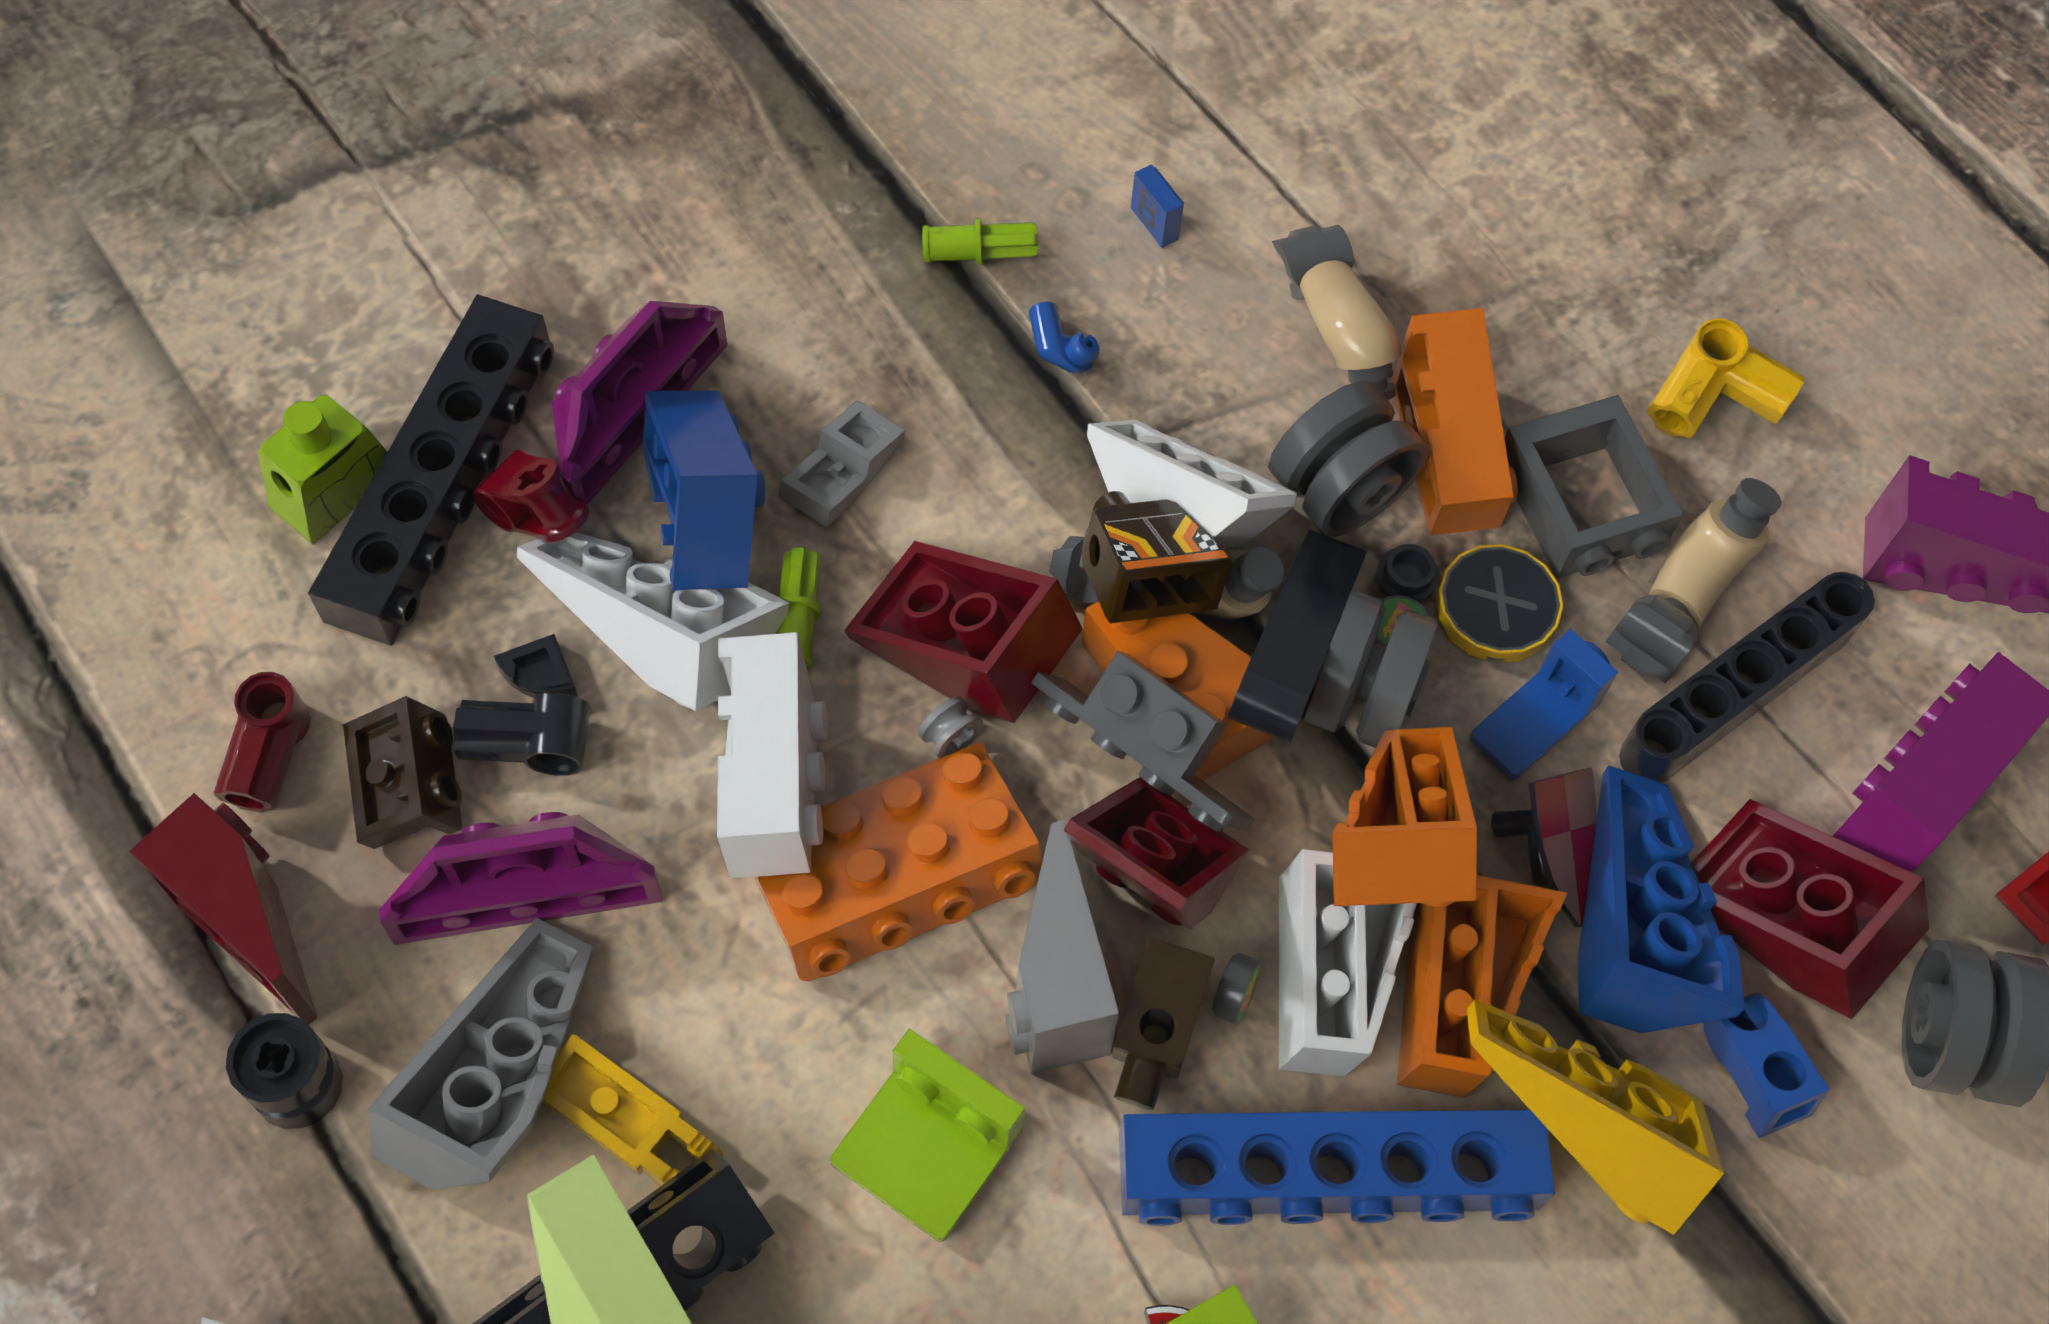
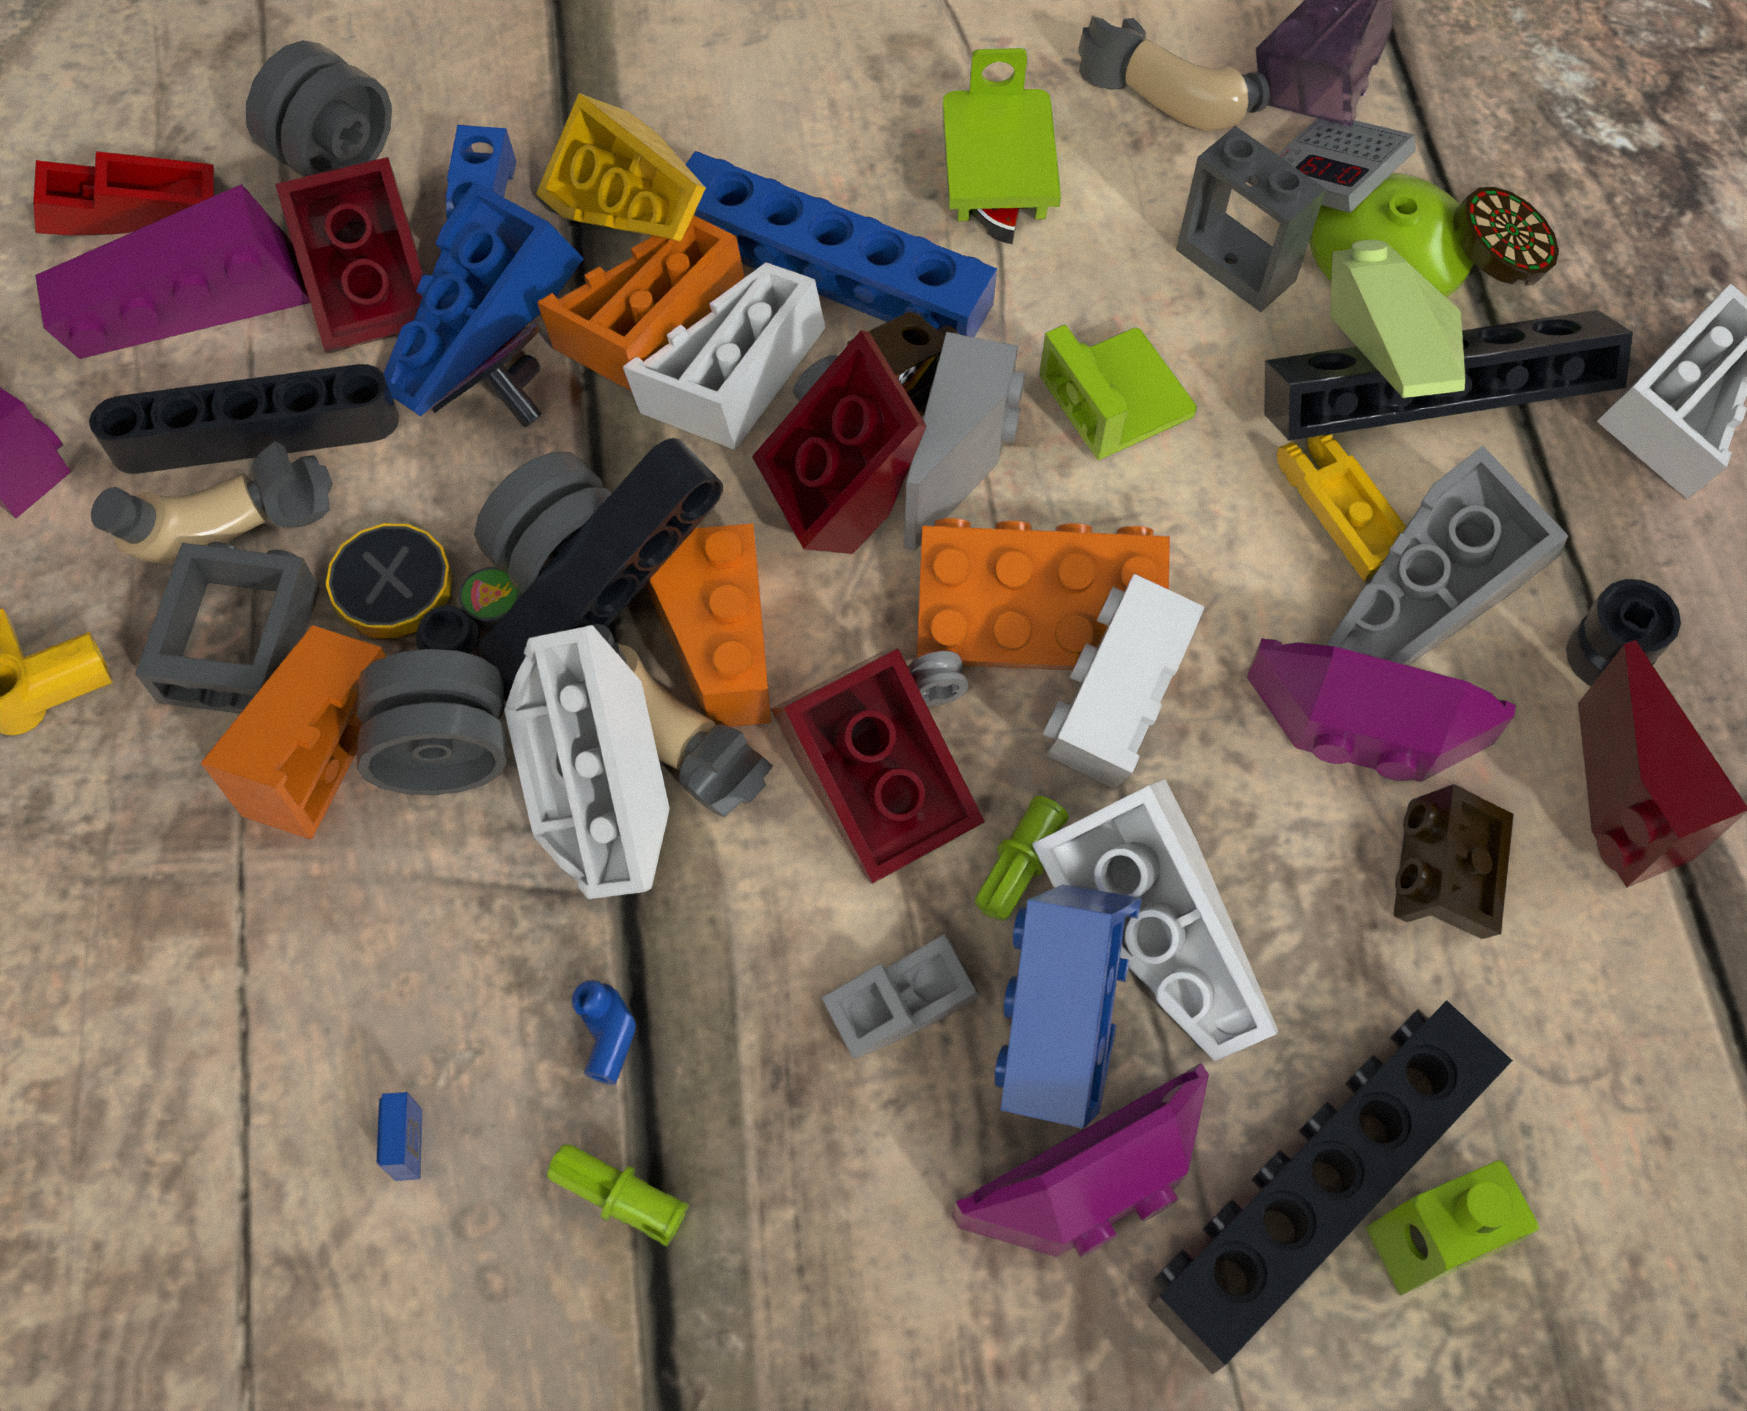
camera: 150 degrees left, 0 degrees up
(261, 747) = (1585, 946): dark red piece -> none
(531, 498) = (1244, 1083): dark red piece -> none
(536, 668) = (1290, 919): black tile -> none
(541, 734) = (1310, 838): black piece -> none
(1151, 560) = (691, 683): dark brown torso -> none
(1154, 725) = (779, 567): dark grey bracket -> none
(1340, 304) = (317, 875): tan piece -> none
(1408, 826) = (626, 360): orange wedge -> none
(1547, 706) = (427, 474): blue bracket -> none

